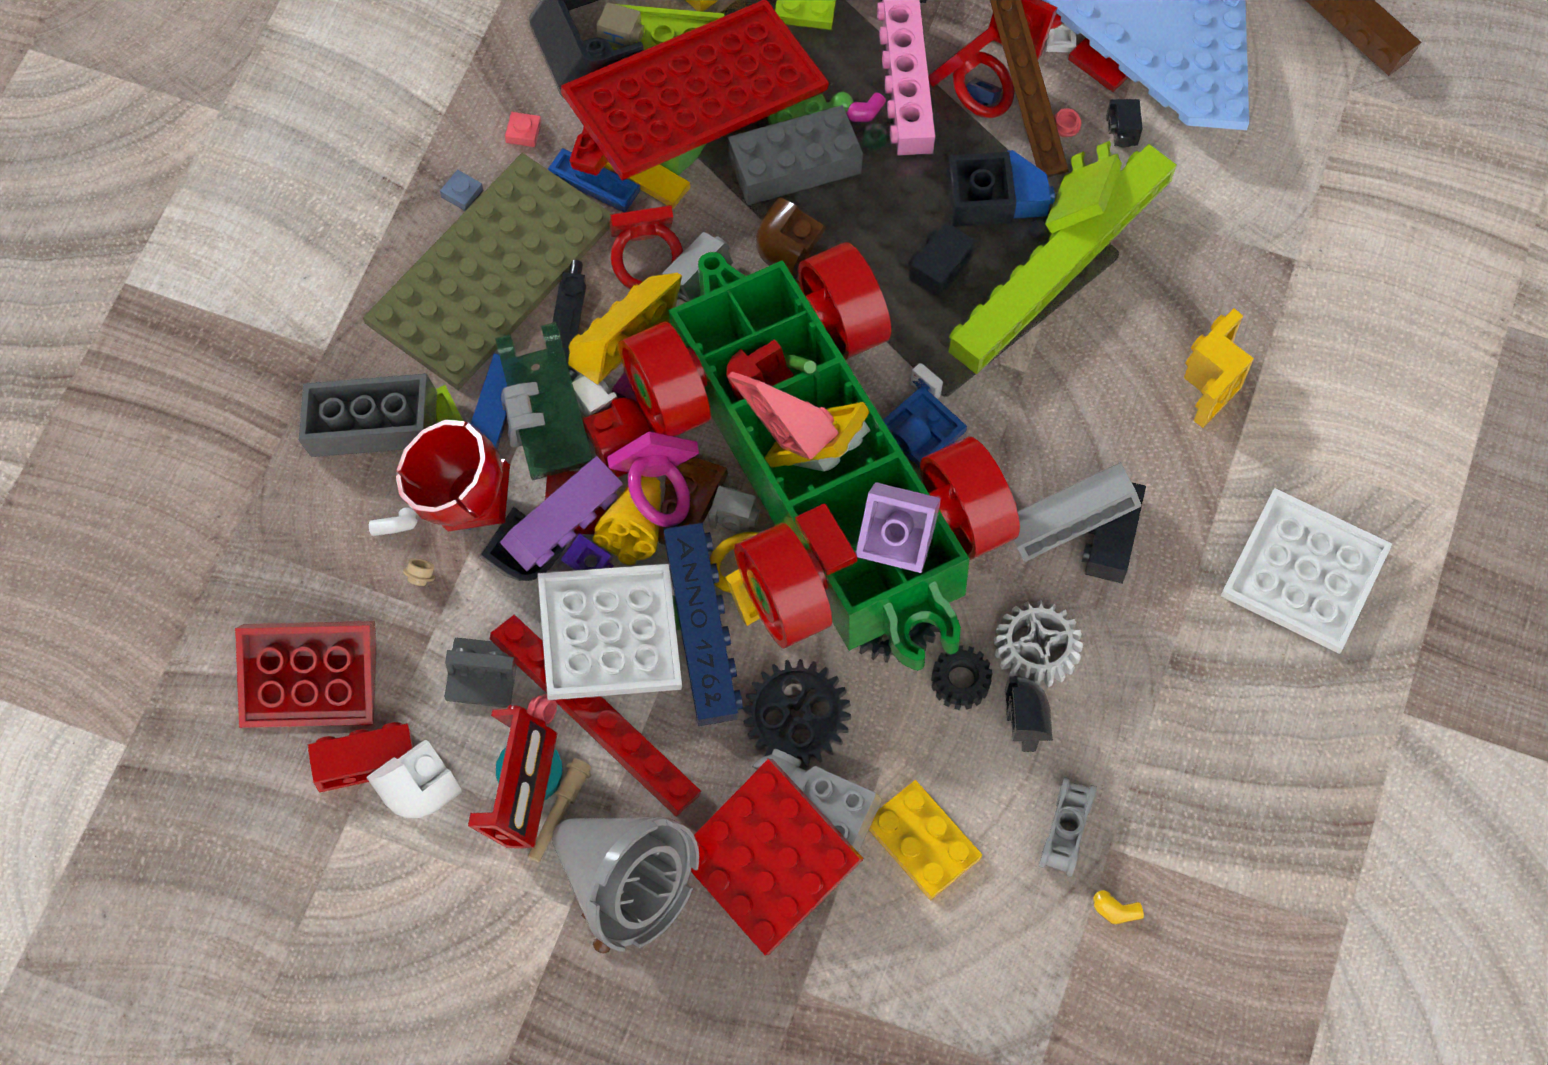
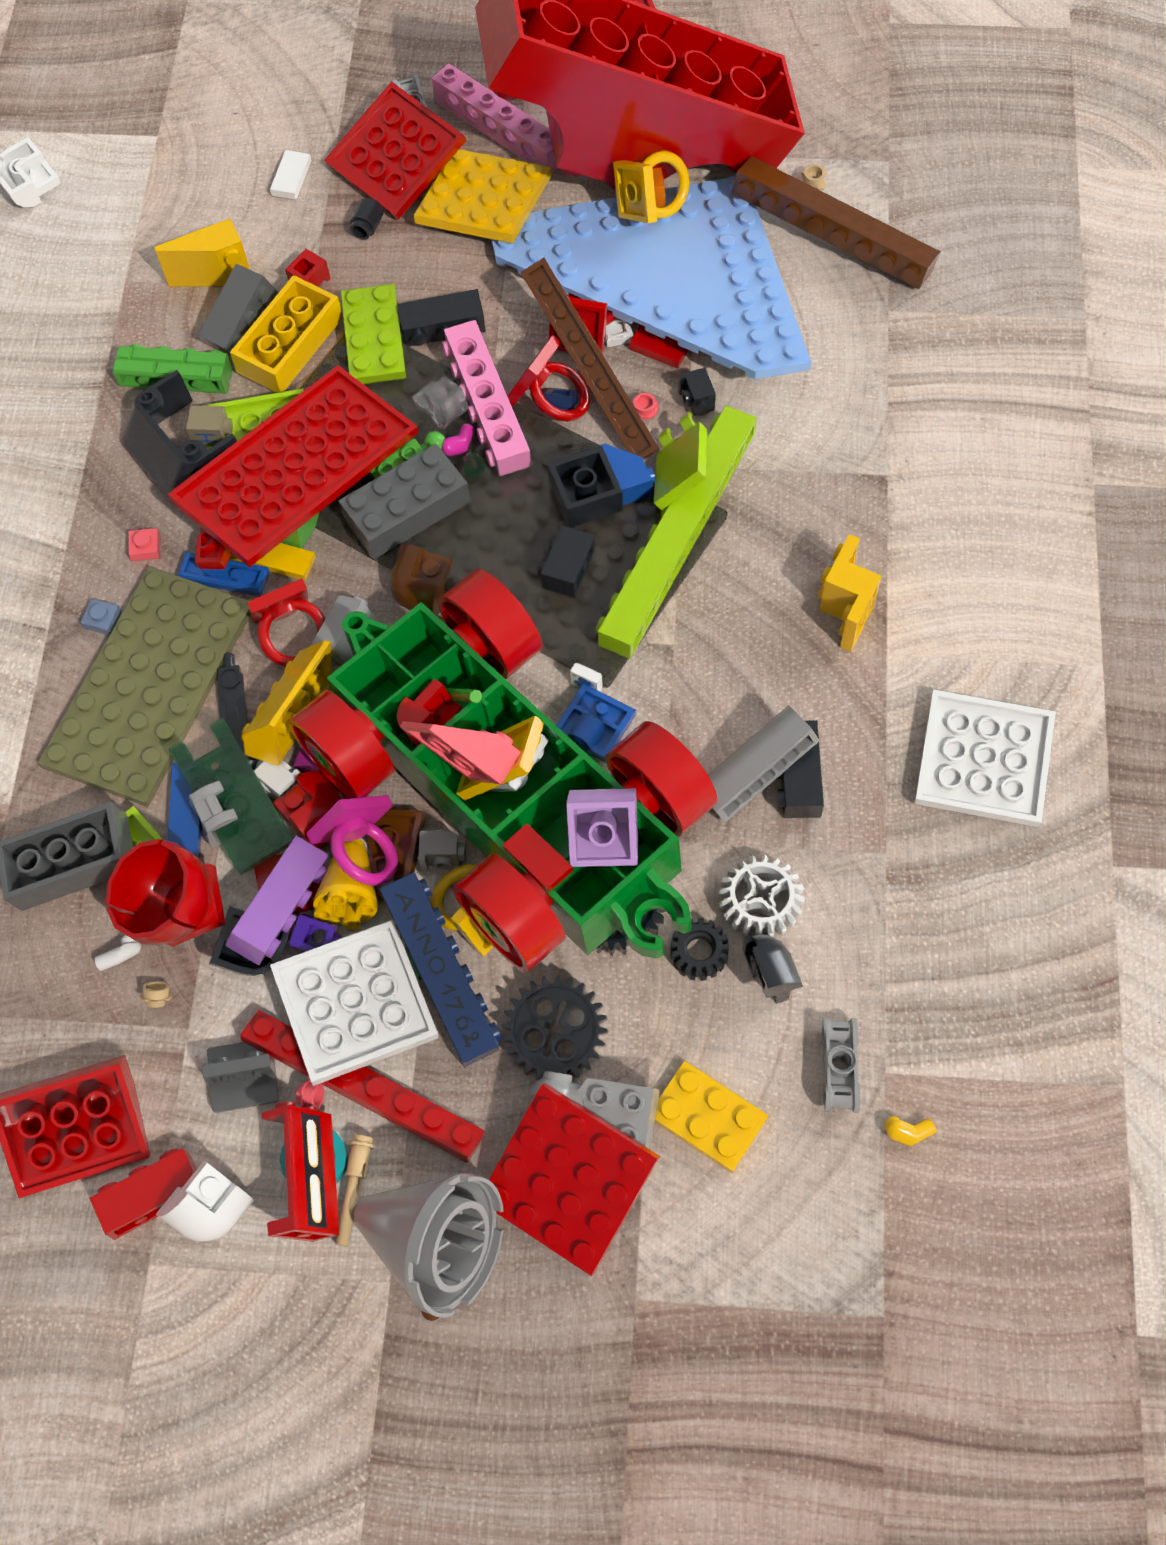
camera: 10 degrees left, 0 degrees up
(860, 63) = (442, 401): none -> clear brick

